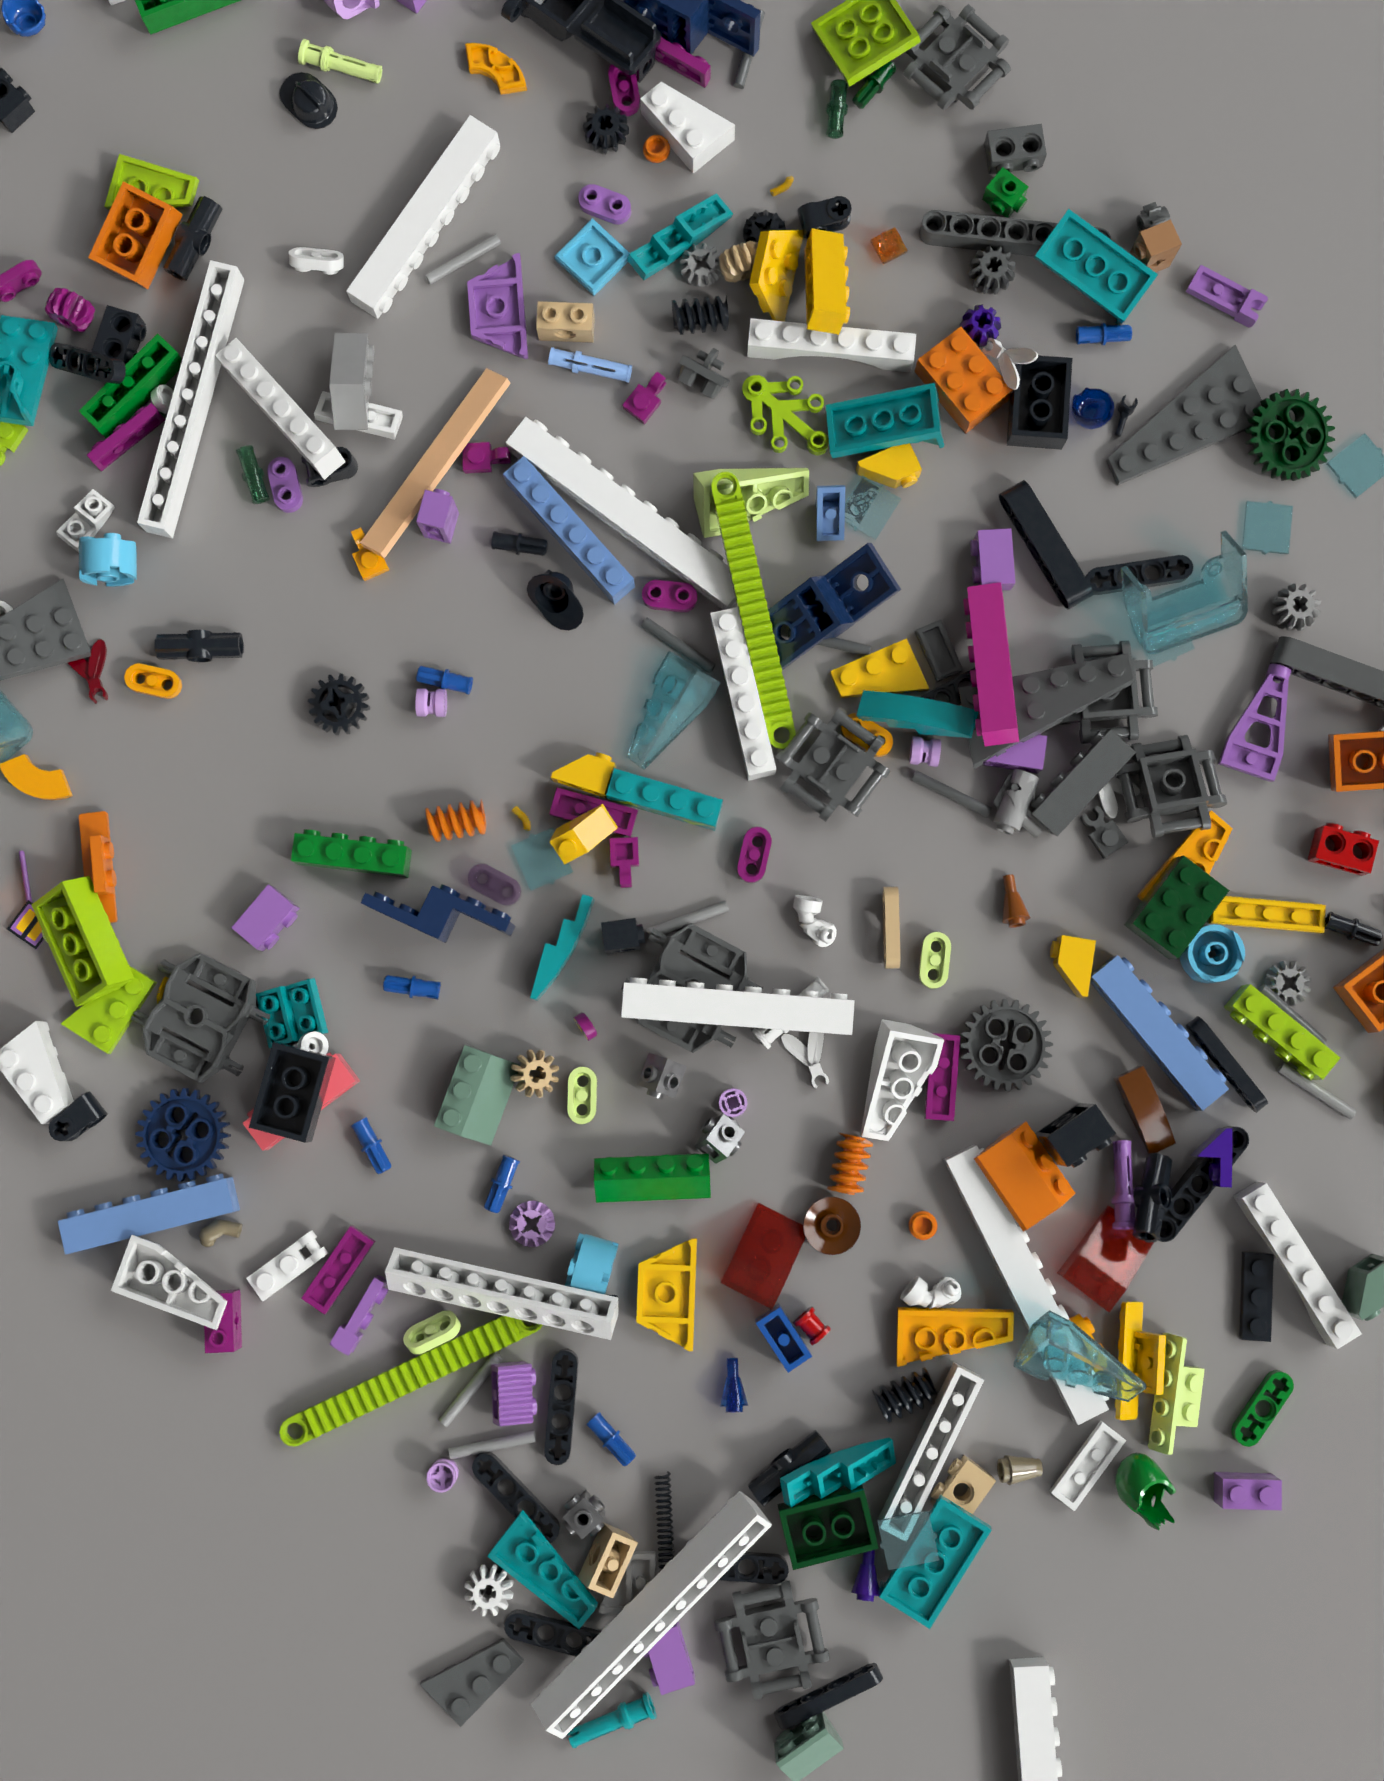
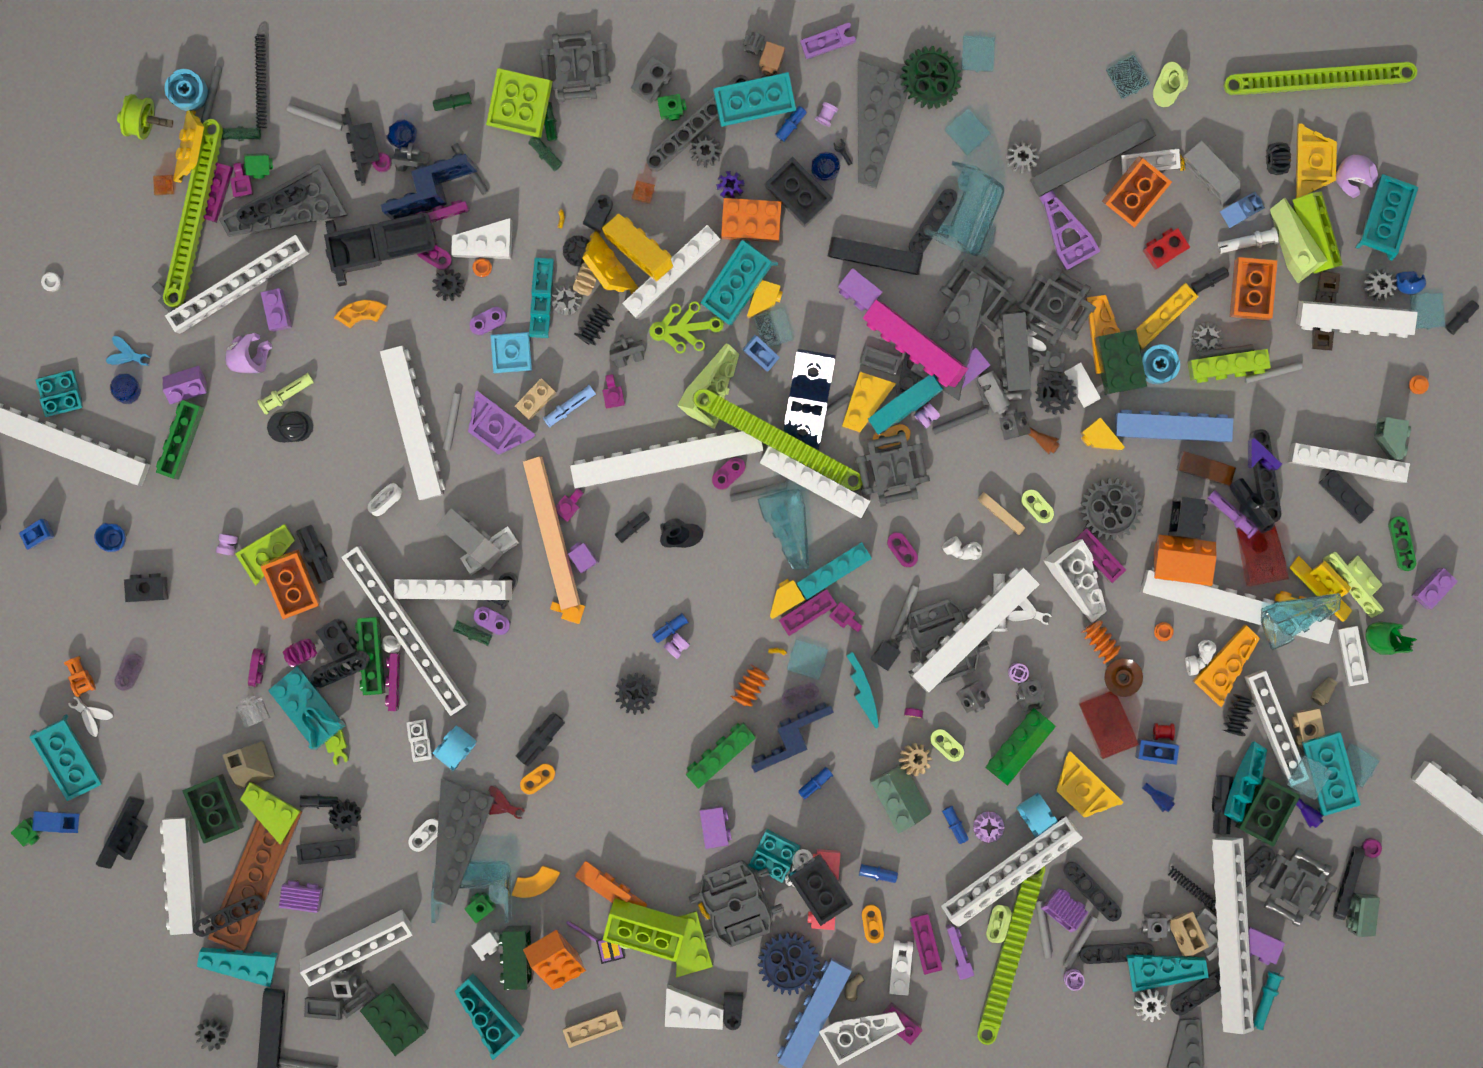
camera: 50 degrees left, 5 degrees up
(117, 143) = (226, 544): none -> lavender wheel
(309, 1189) = (872, 923): none -> light orange plate
(569, 530) = (649, 495): medium blue brick -> none
(582, 833) = (815, 628): yellow slope -> none
(611, 1439) = (1130, 880): blue axle -> none
(892, 1686) = (1372, 847): none -> magenta tile
(975, 1588) = (1361, 764): none -> clear light blue piece
(1001, 855) = (1014, 424): none -> flat silver brick
(1008, 359) = (763, 190): white piece -> none
(1065, 870) = (1063, 388): none -> black gear
(1111, 891) = (1085, 389): none -> white slope
(1148, 361) = (826, 114): none -> lavender bush
(1226, 1064) = (1220, 406): black beam -> none

